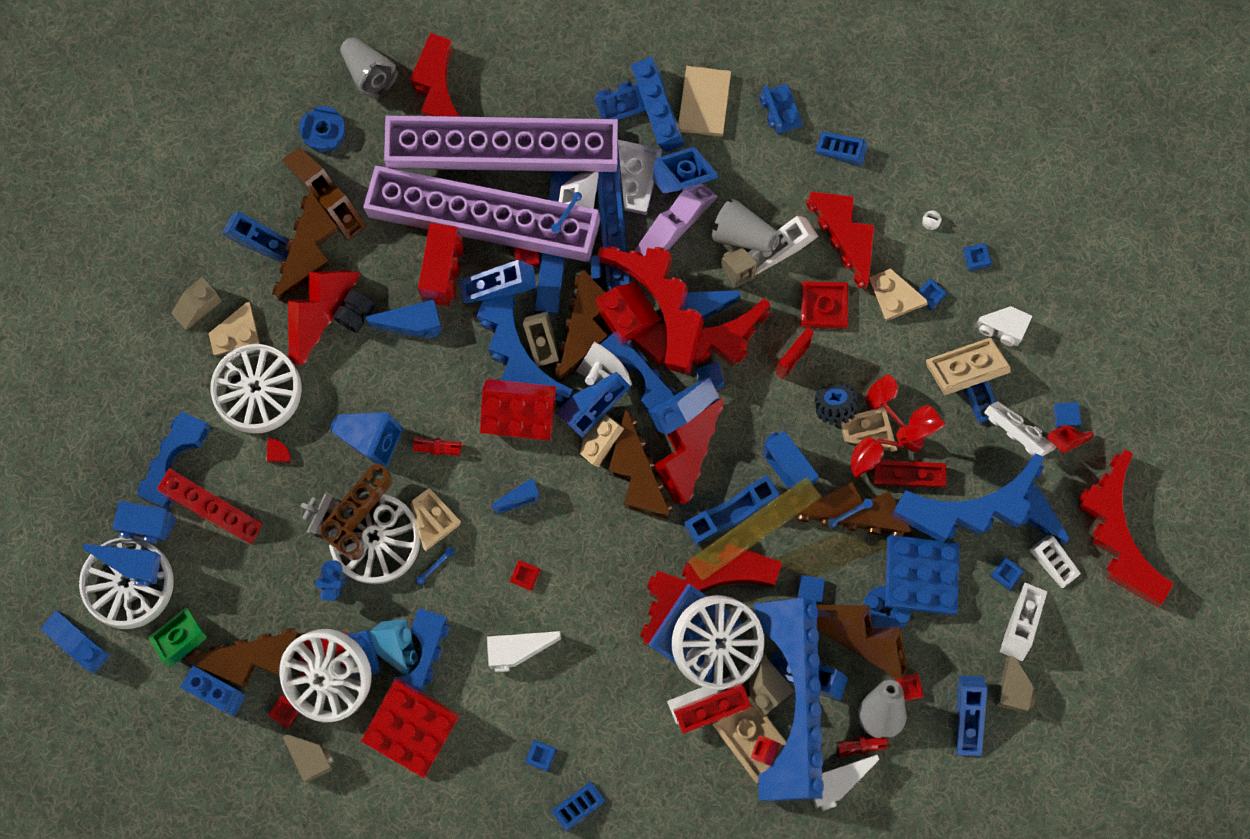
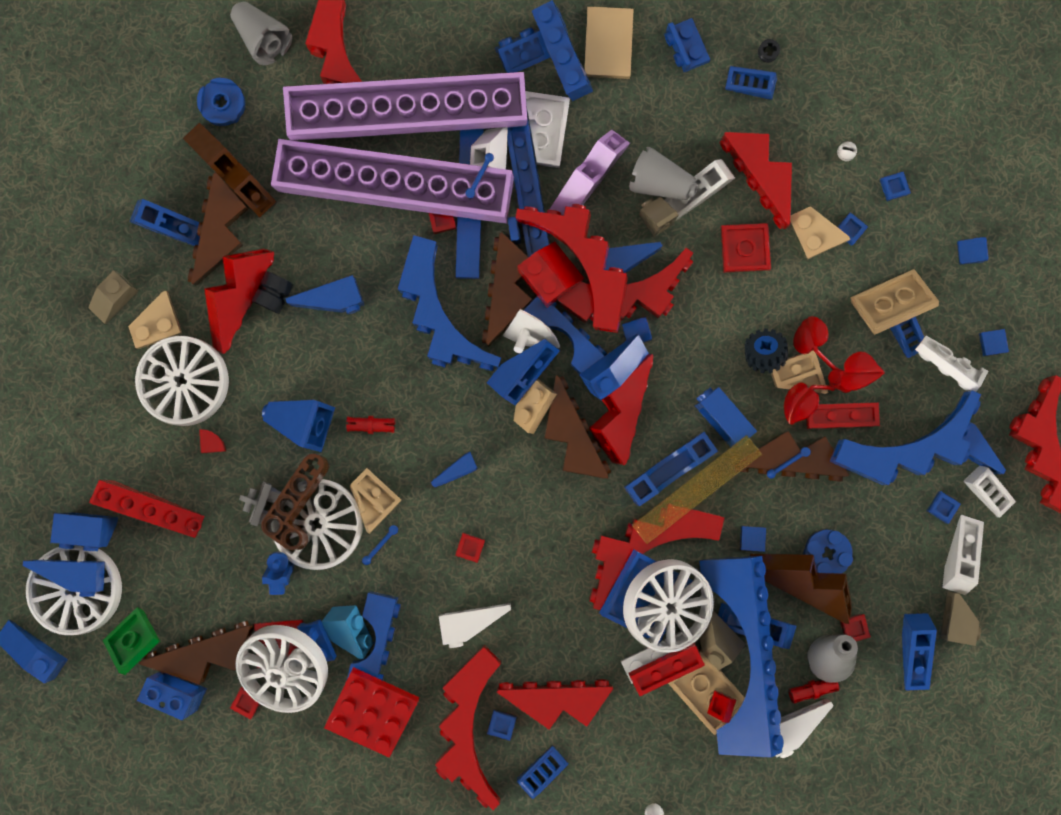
camera: 10 degrees left, 10 degrees up
(185, 434) = (115, 432): blue arch -> none
(309, 758) = (274, 747): dark tan slope -> none
(440, 264) = (356, 238): red brick -> none
(496, 783) = (457, 726): none -> red arch
(499, 282) = (417, 253): blue slope -> none
(518, 409) = (448, 383): red brick -> none
(541, 338) = (465, 306): dark tan slope -> none
(589, 734) = (548, 701): none -> red slope
(682, 170) = (593, 121): blue slope -> none
(795, 352) = (722, 302): red tile -> none
(860, 112) = (774, 45): none -> black bush
(922, 575) = (861, 518): blue plate -> none
(1005, 324) = (931, 255): white slope -> none
(1050, 324) = (973, 251): none -> blue slope
(1068, 438) = (997, 367): red tile -> none

